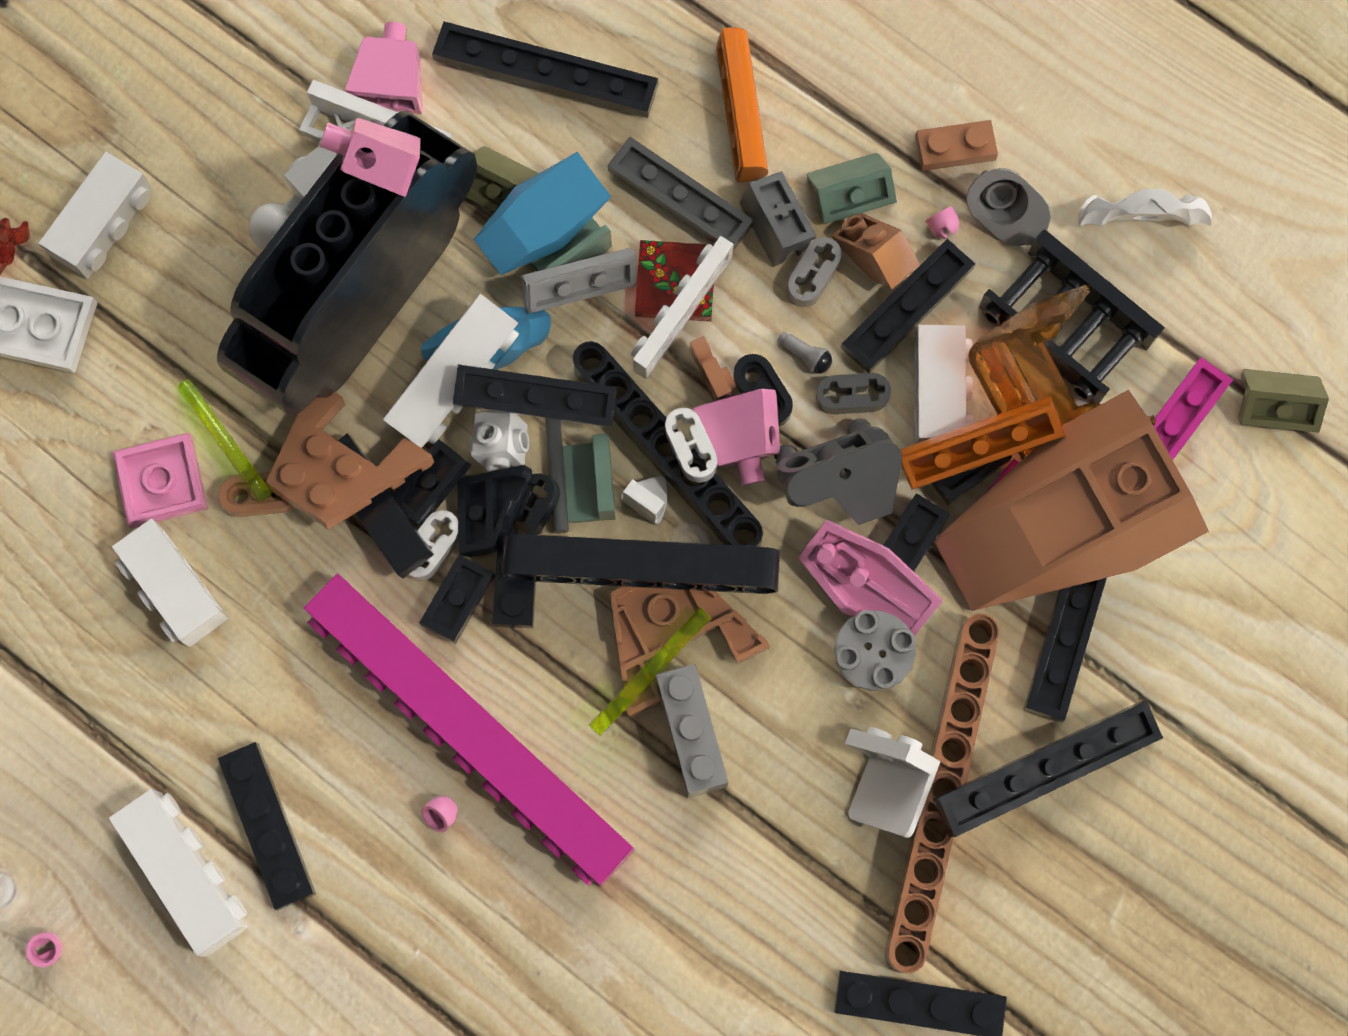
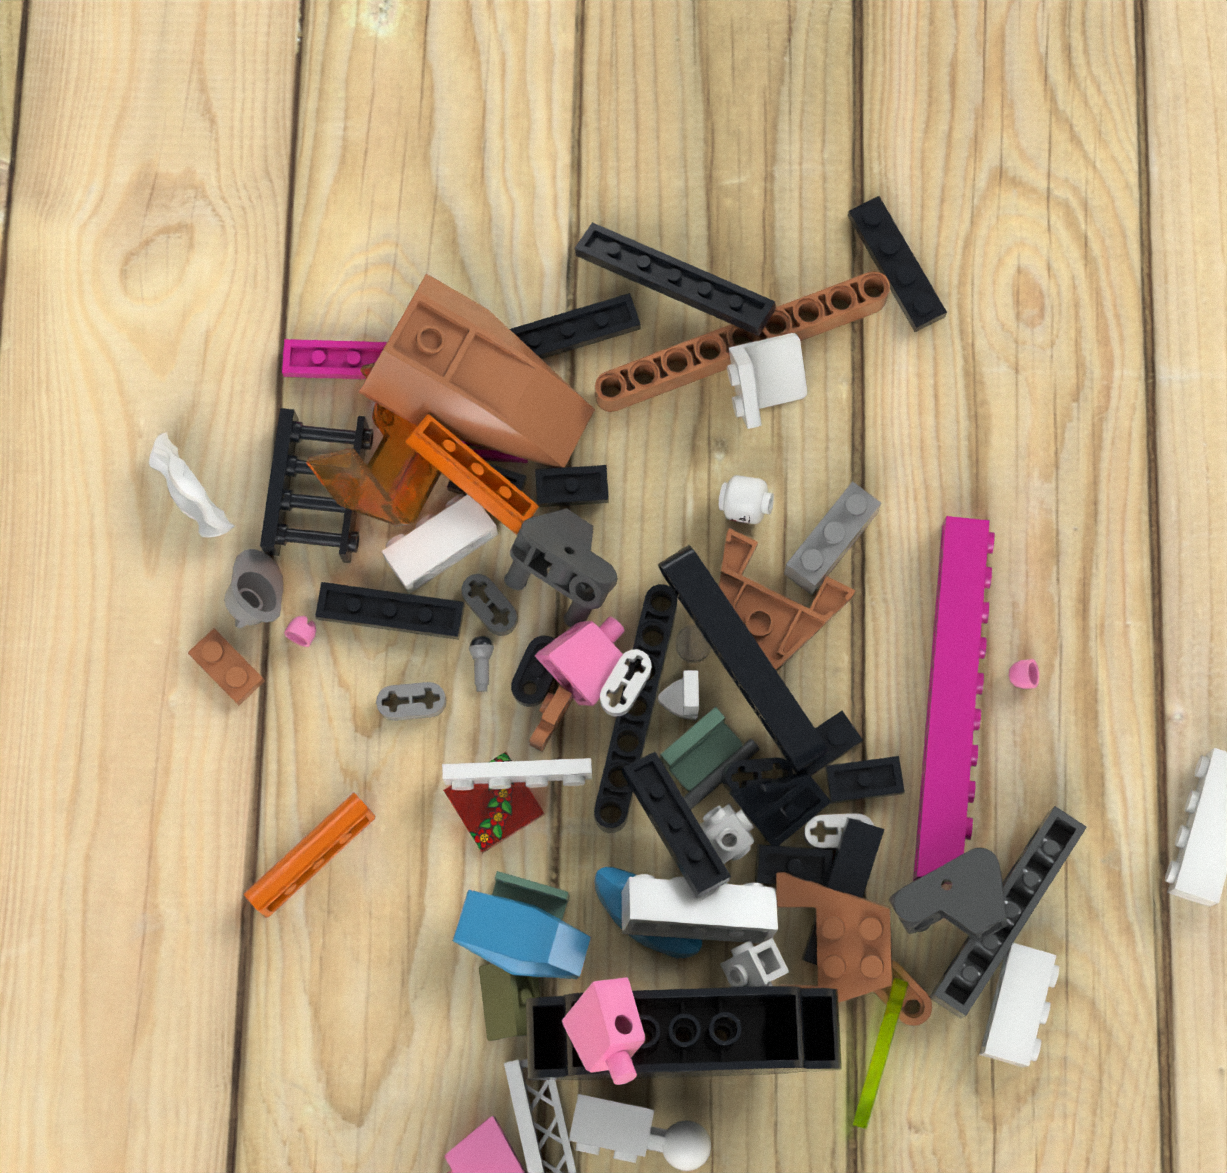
camera: 125 degrees left, 0 degrees up
(160, 480) = (946, 1083): bright pink tile -> none
(248, 630) = (1022, 892): none -> dark grey brick
(266, 826) = (1129, 794): black plate -> none
(268, 588) = (971, 904): none -> dark grey piece
(371, 384) = (754, 965): none -> white brick
(545, 69) = (388, 1038): black plate -> none
(579, 280) = (552, 868): light grey tile -> none
(649, 671) = (813, 596): clear neon green bar -> none
(679, 193) = (421, 848): dark grey plate -> none
(777, 217) = (389, 756): dark grey hinge -> none
(786, 681) = (745, 499): none -> white head
(853, 187) = (318, 721): sand green panel -> none
(865, 667) = (695, 448): light grey plate -> none
(867, 576) = (629, 492): bright pink piece -> none
(877, 249) = (361, 665): nougat slope -> none
(1283, 400) = (272, 298): olive panel -> none

